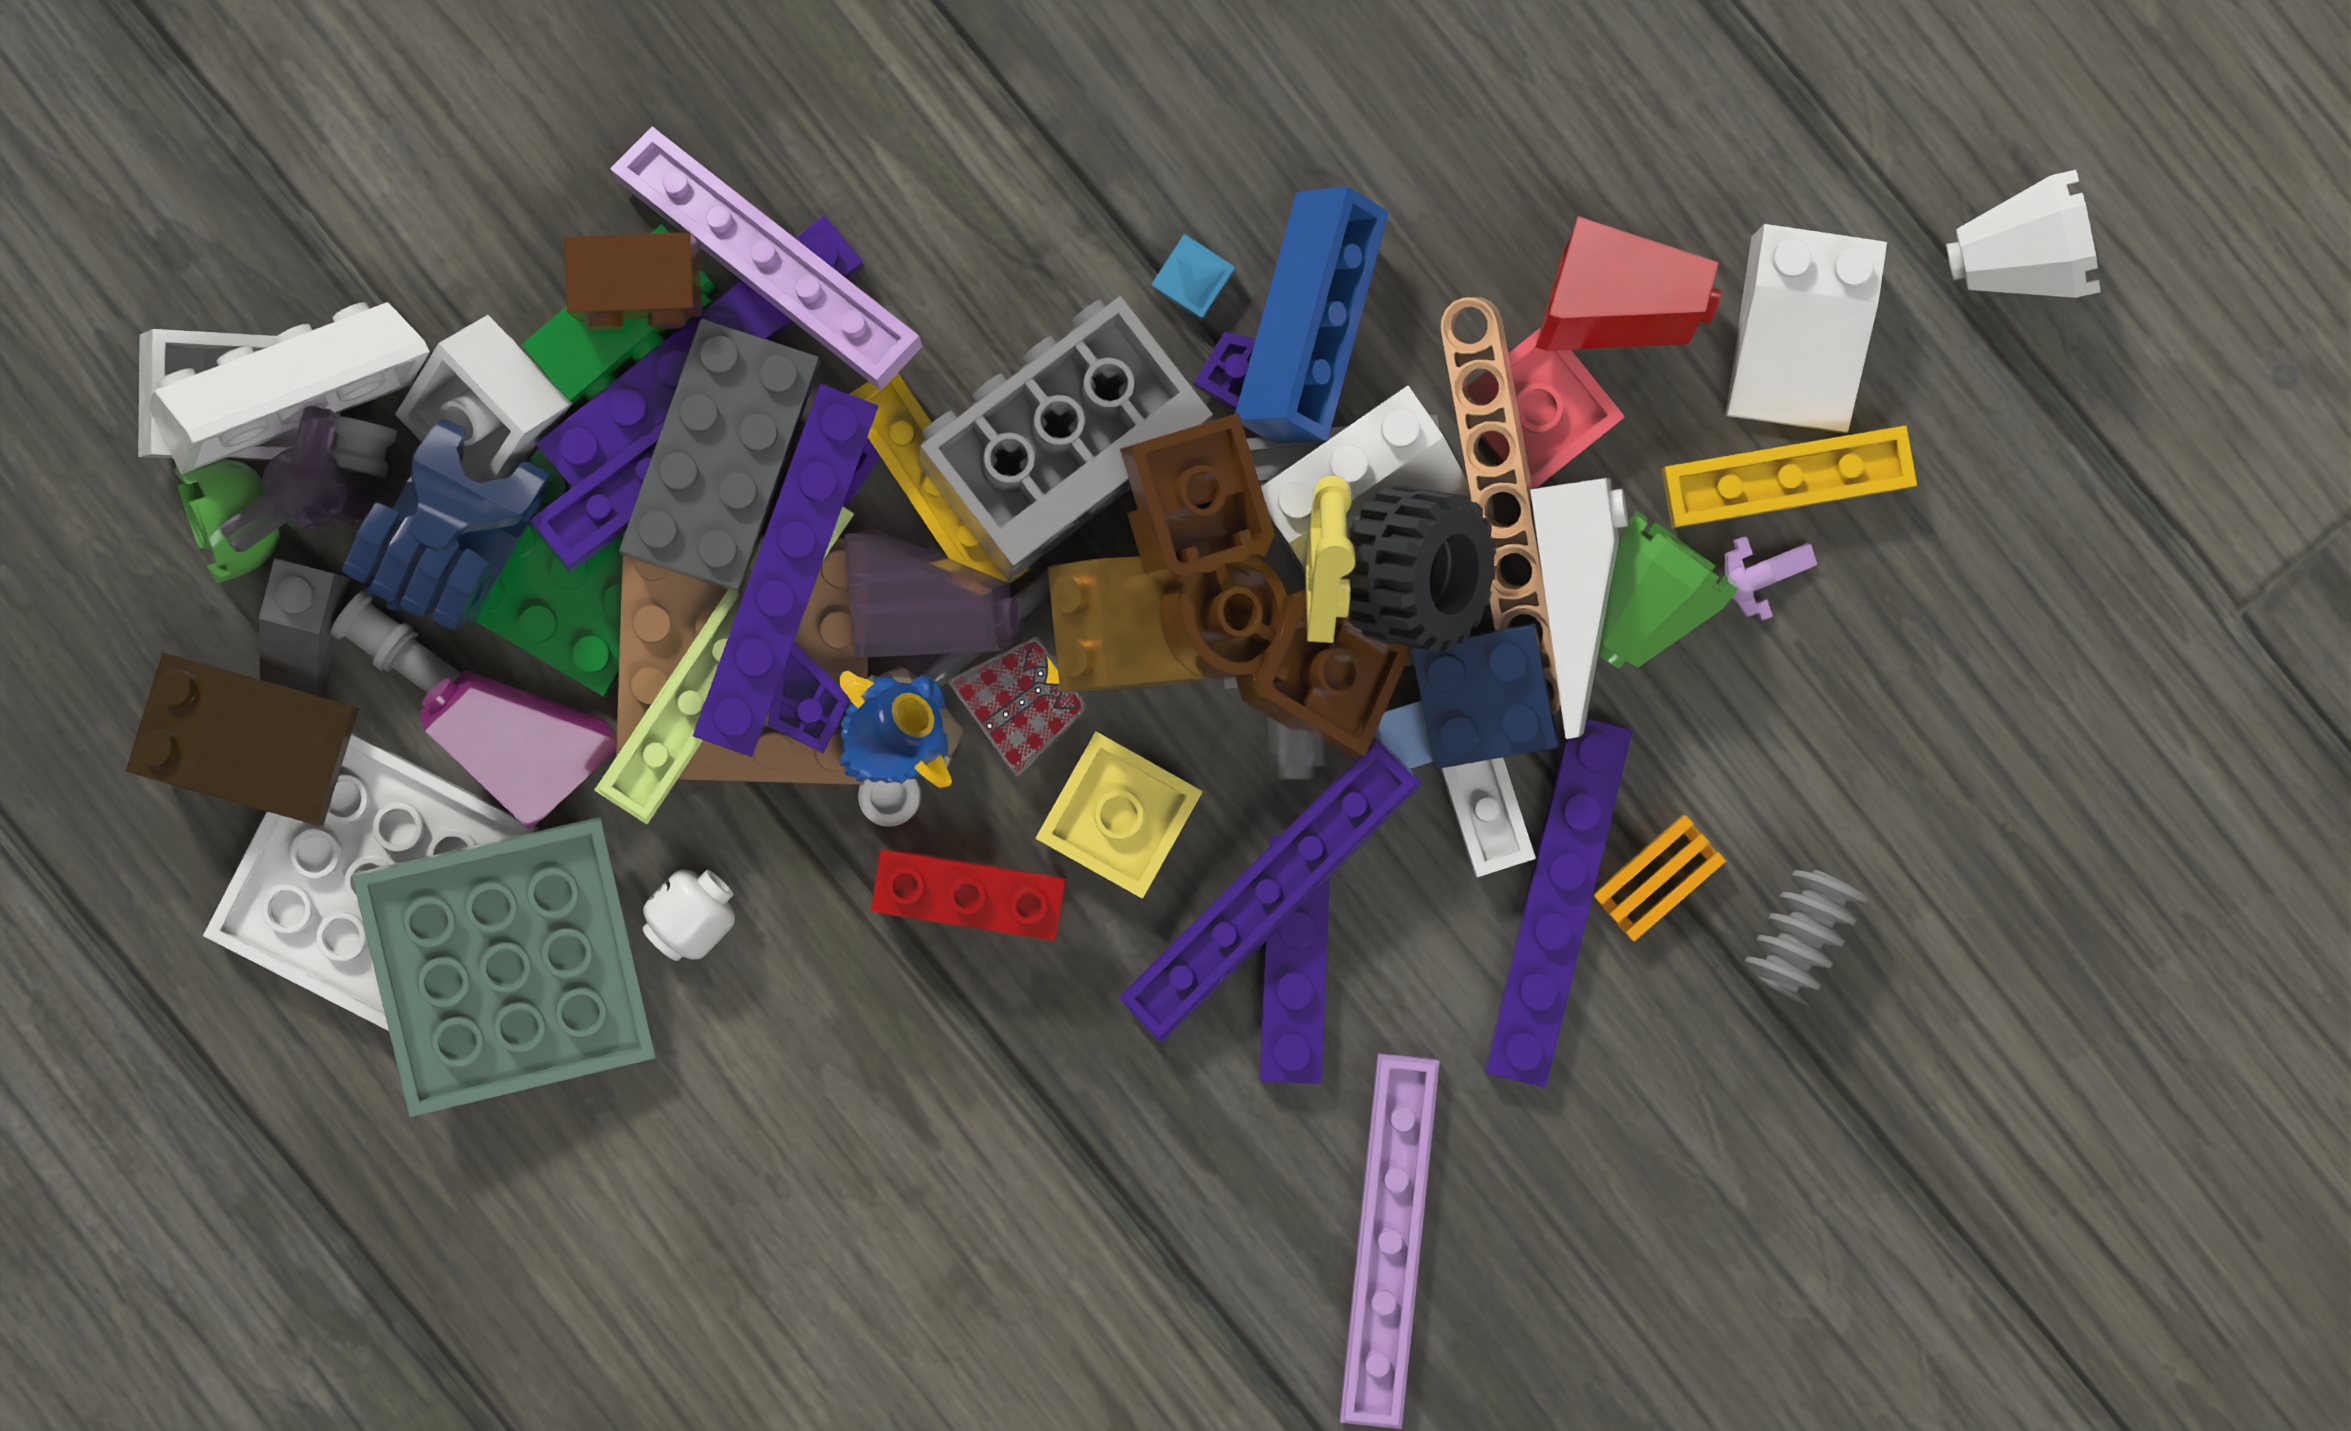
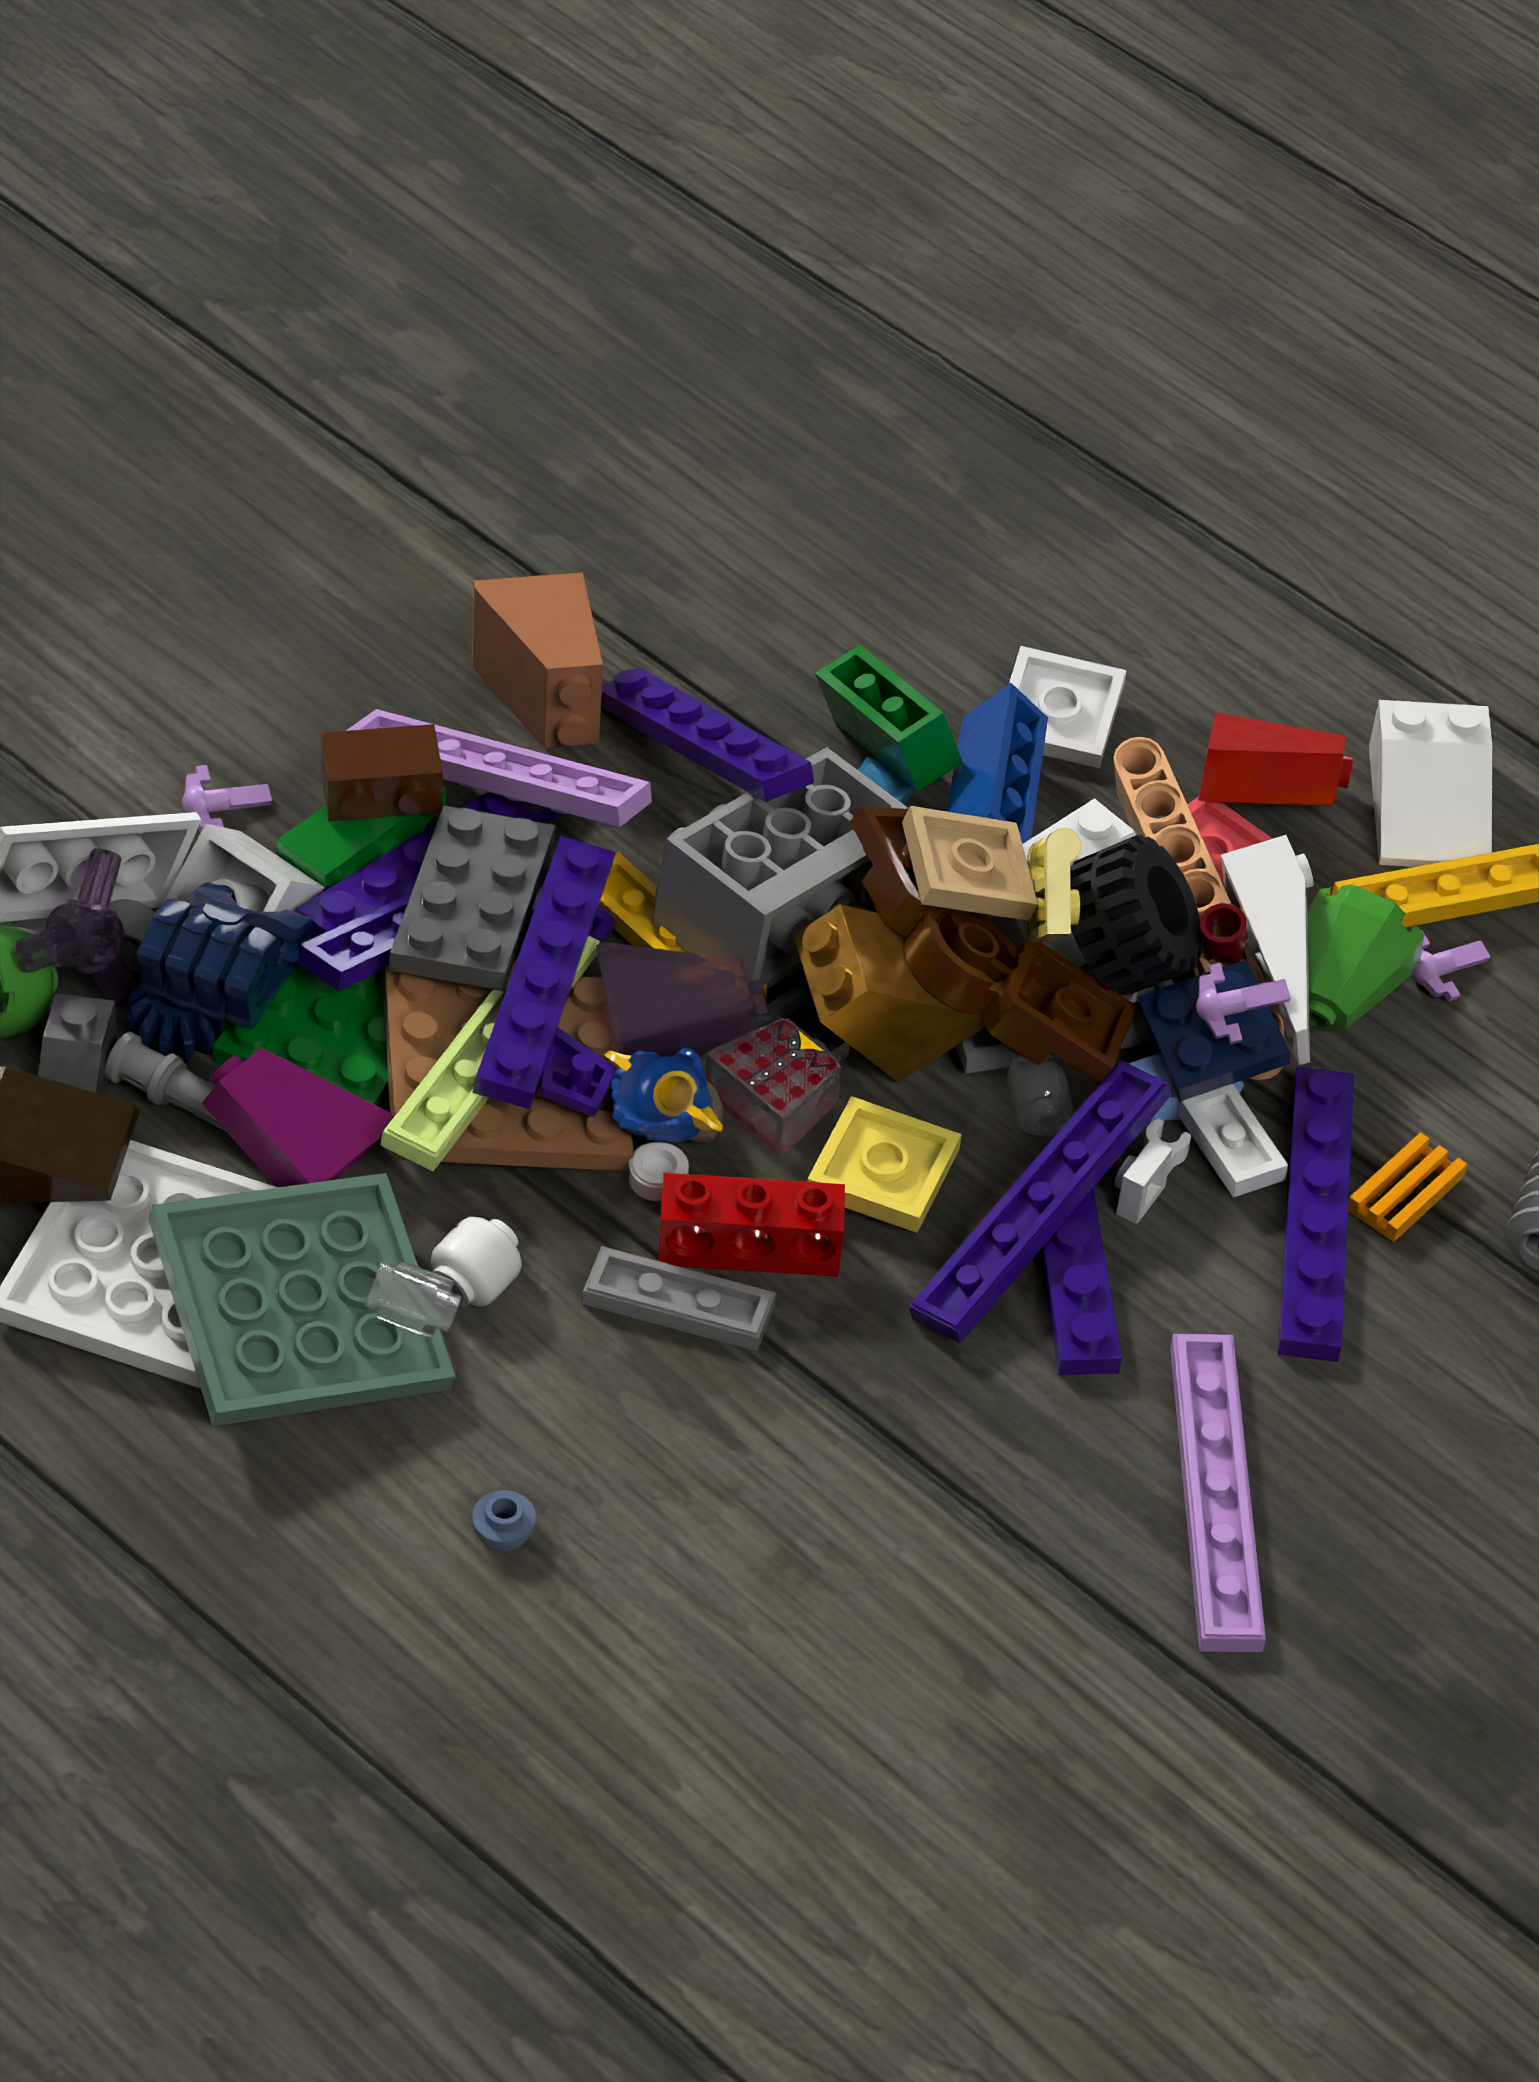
camera: 10 degrees left, 40 degrees down
(453, 248) = (219, 799): none -> lavender piece
(611, 995) = (413, 1298): none -> clear brick
(707, 1218) = (500, 1533): none -> sand blue plate
(842, 80) = (541, 654): none -> nougat slope
(891, 961) = (679, 1298): none -> light grey tile
(994, 242) = (705, 735): none -> dark purple plate
(1207, 210) = (889, 718): none -> green brick
(1243, 516) = (969, 863): none -> tan plate
(1382, 857) = (1146, 1176): none -> white plate
(1415, 166) = (1075, 697): none -> white plate
(1483, 699) = (1214, 1006): none -> lavender piece
(1502, 603) = (1223, 933): none -> dark red hose

